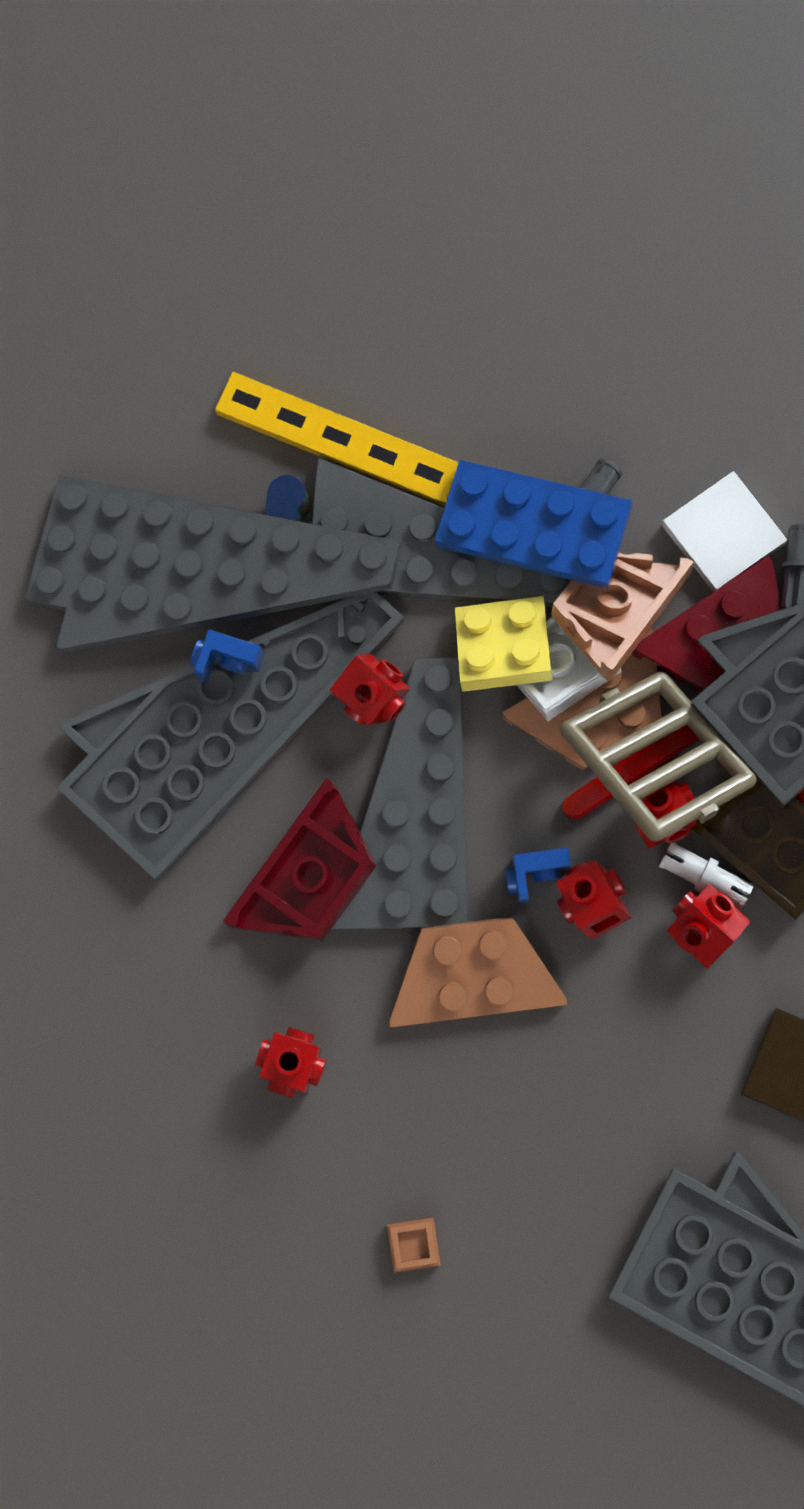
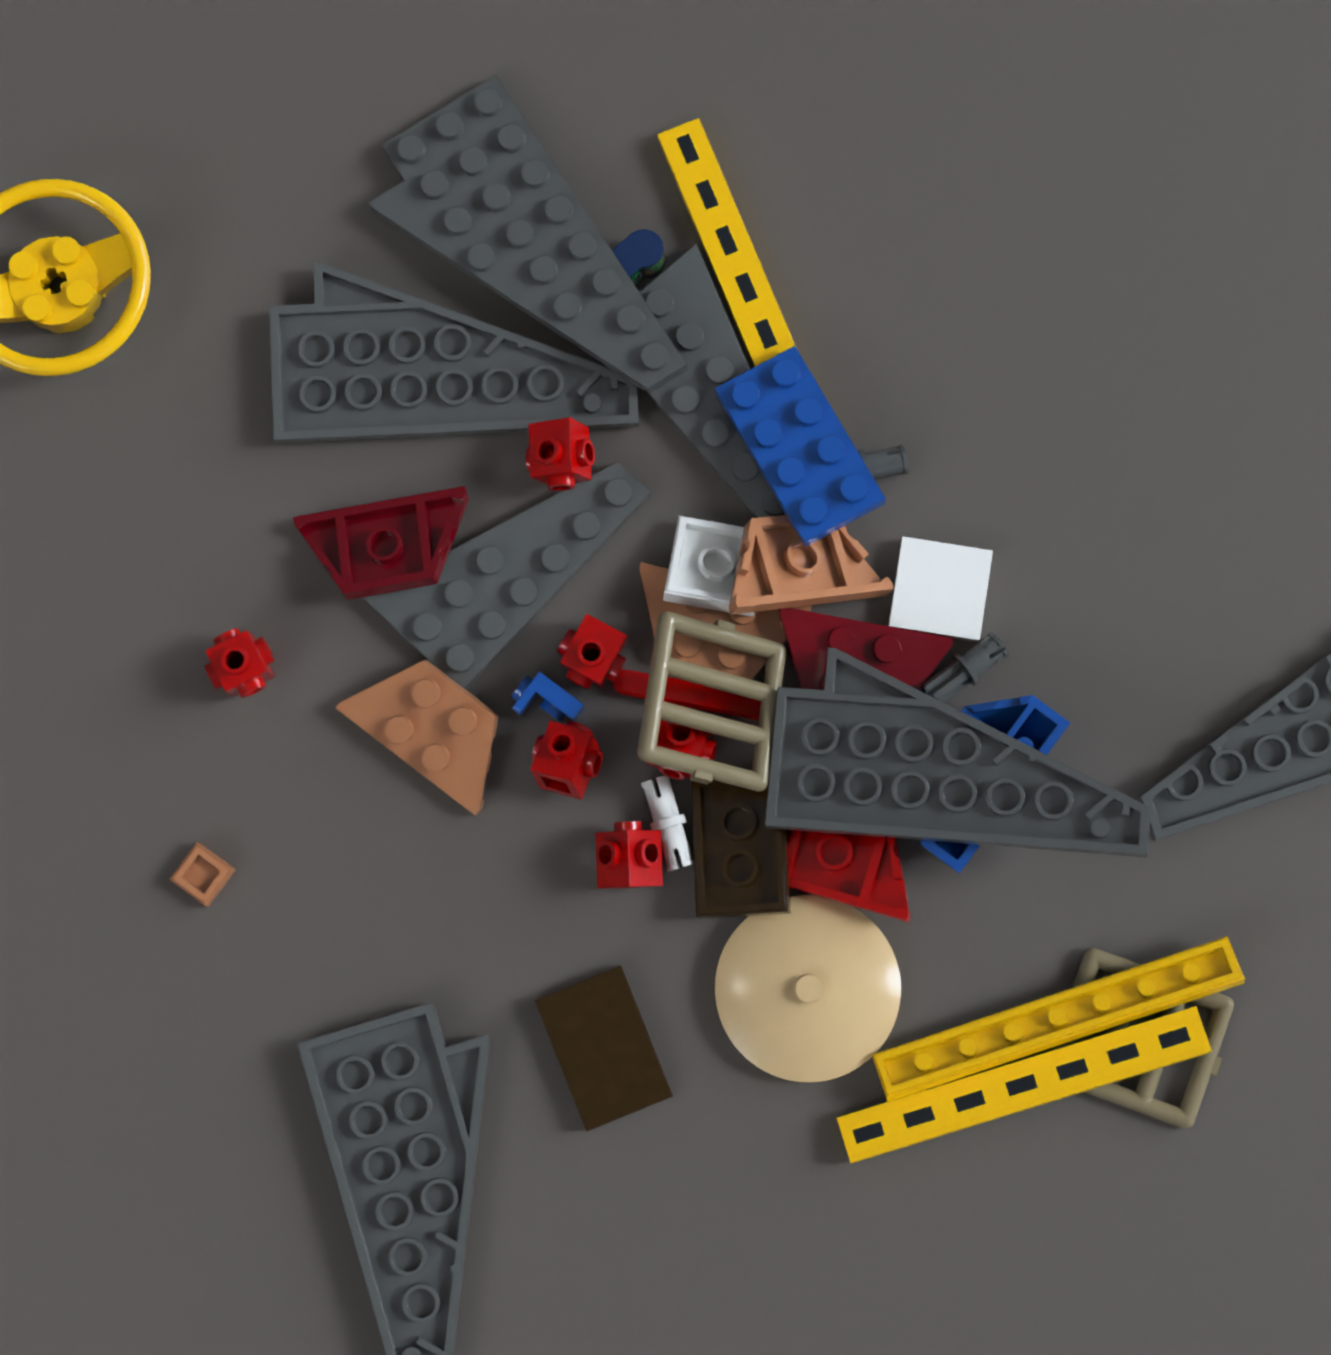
camera: 45 degrees right, 5 degrees up
(234, 655) = (483, 332): blue bracket -> none
(503, 644) = (689, 512): light yellow plate -> none
(537, 790) = (592, 636): none -> red brick

